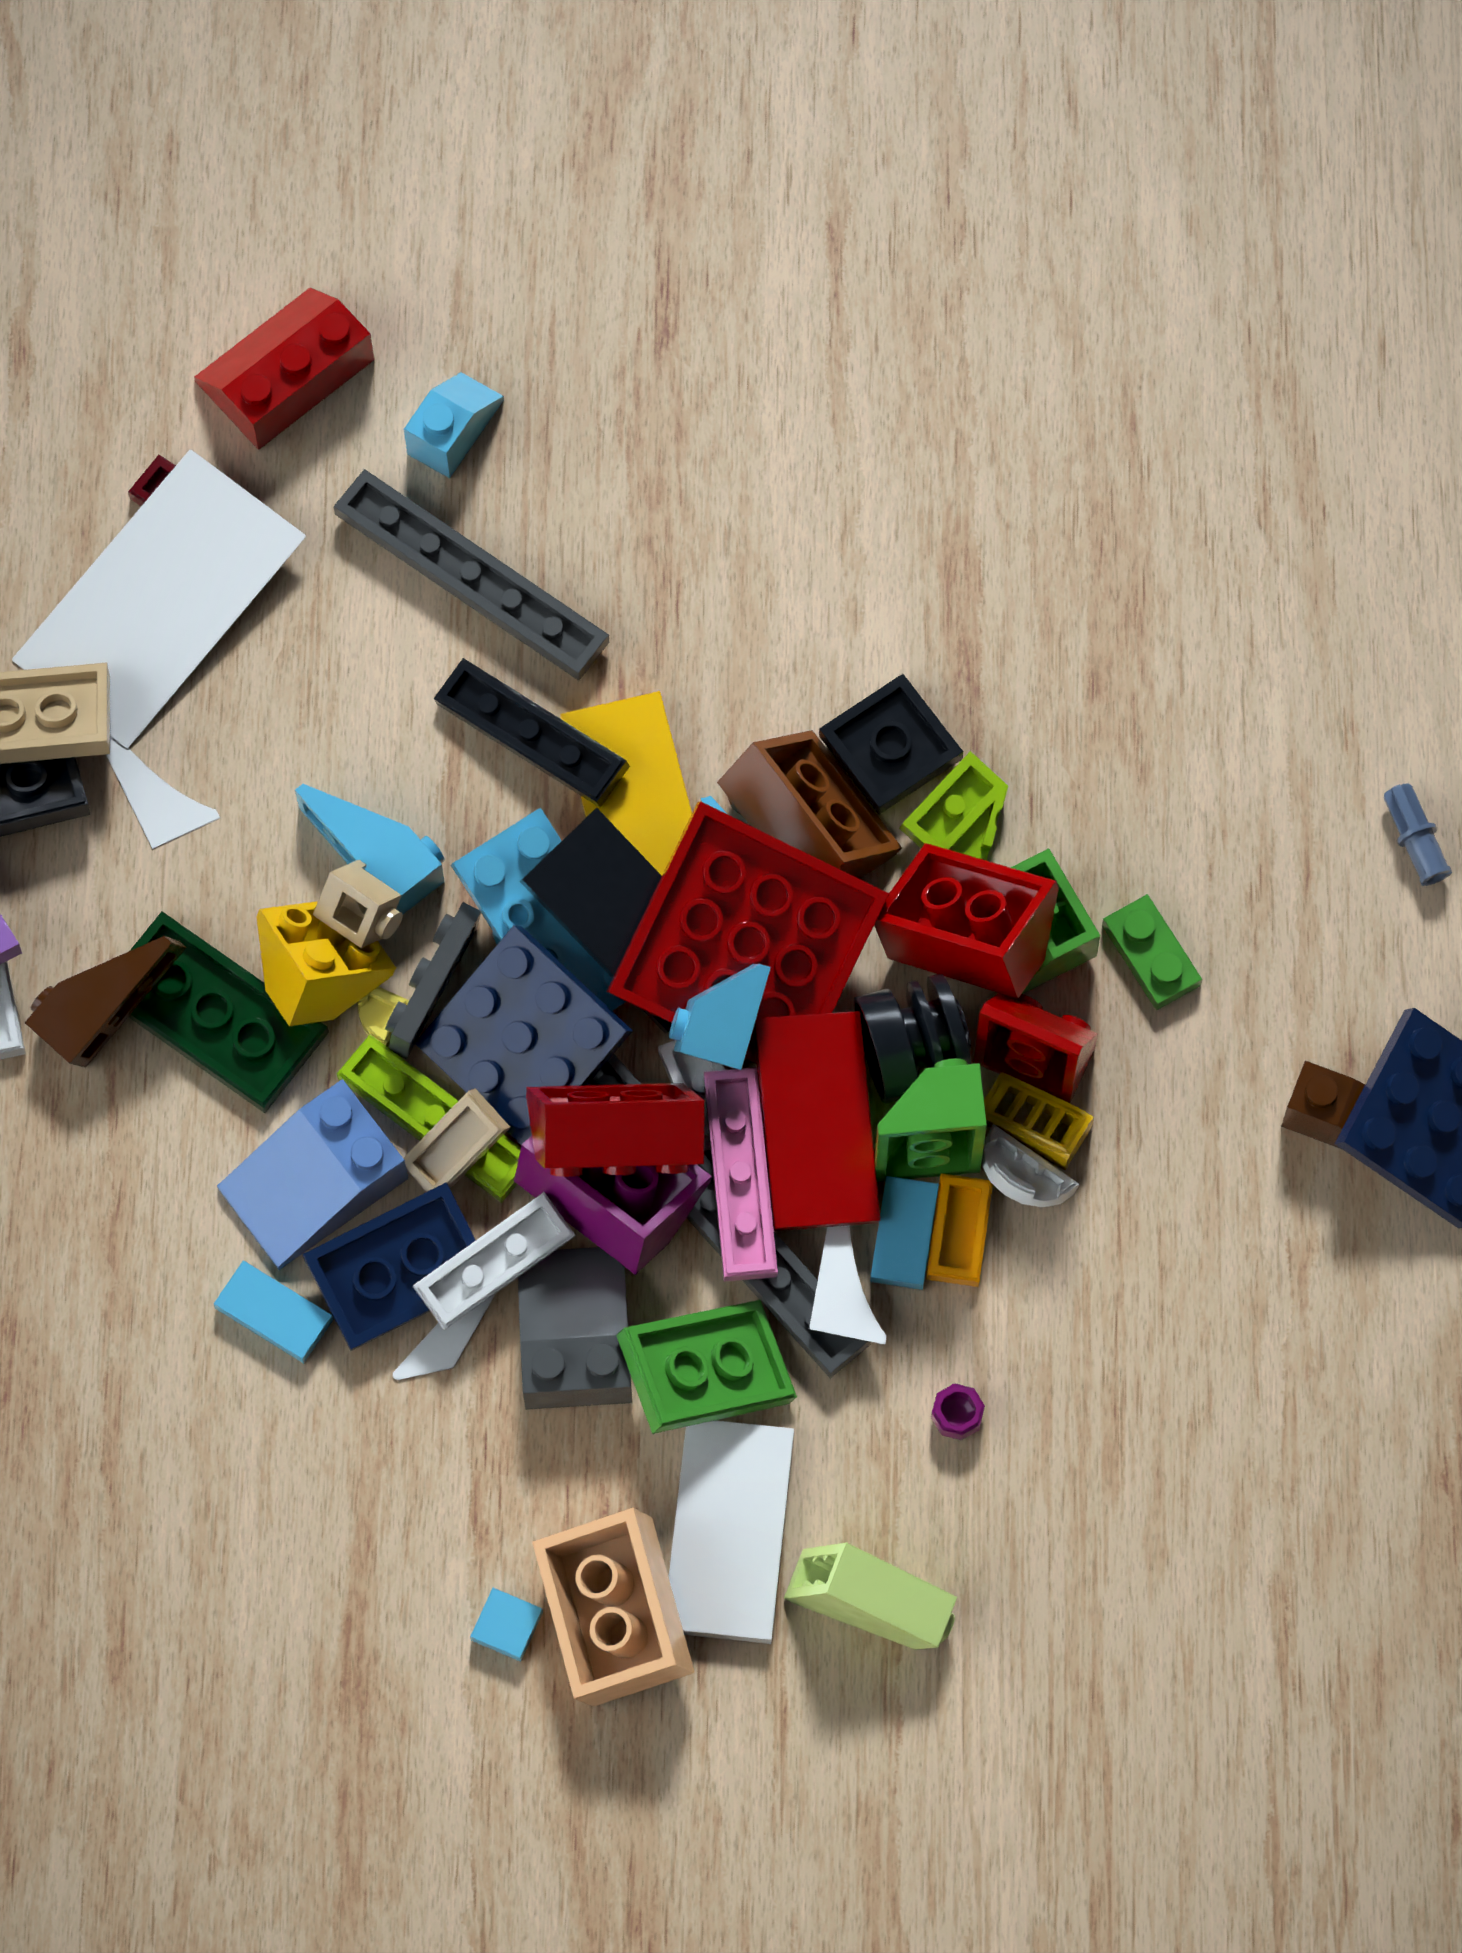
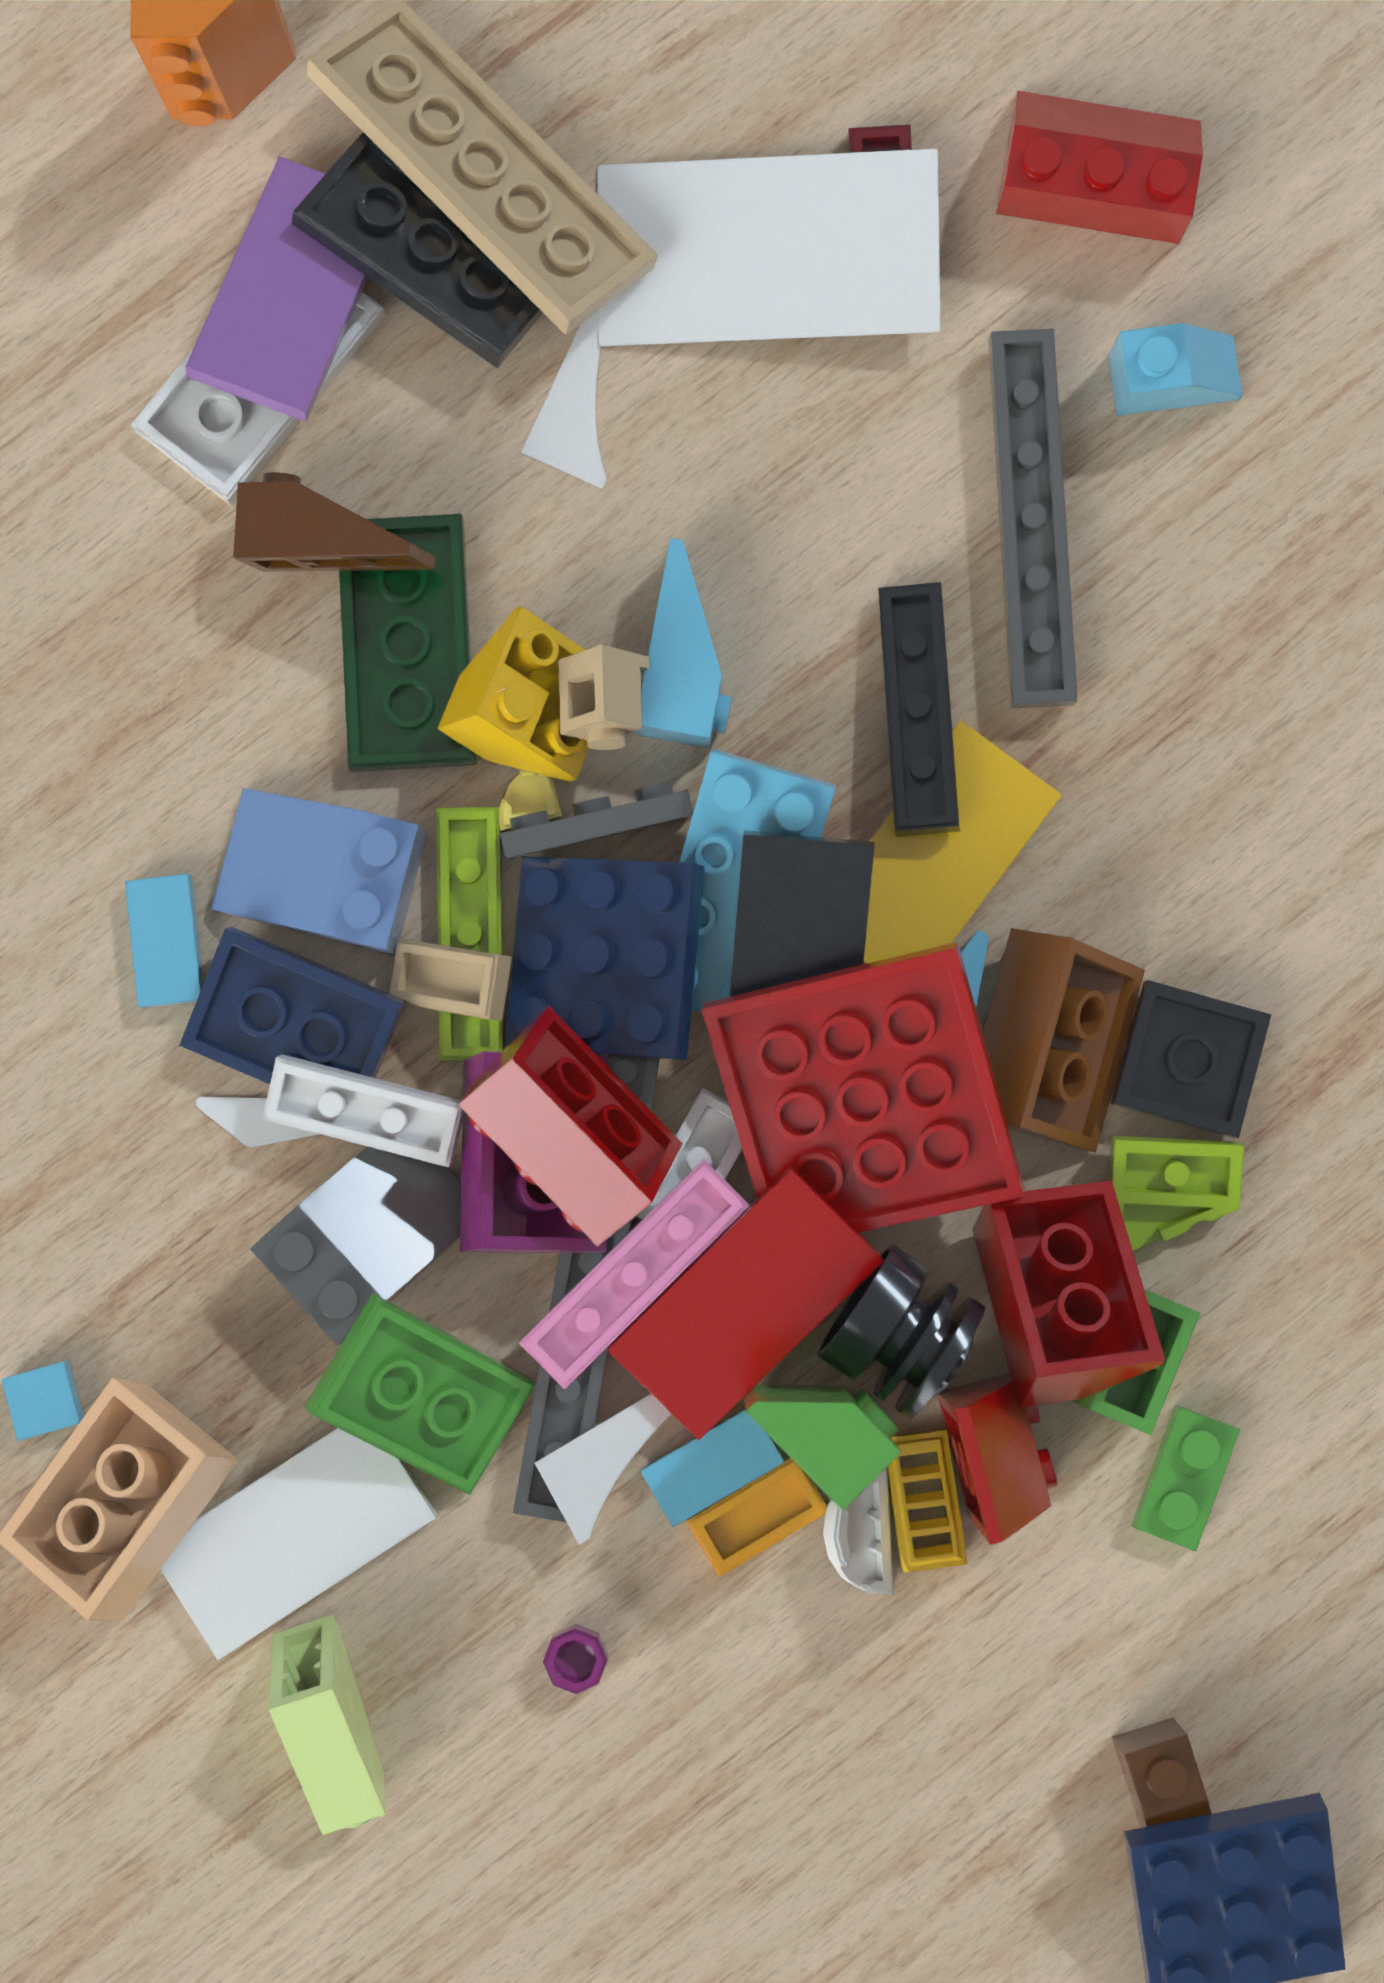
camera: 55 degrees right, 15 degrees up
(721, 1018) = (762, 1140): medium azure slope -> none

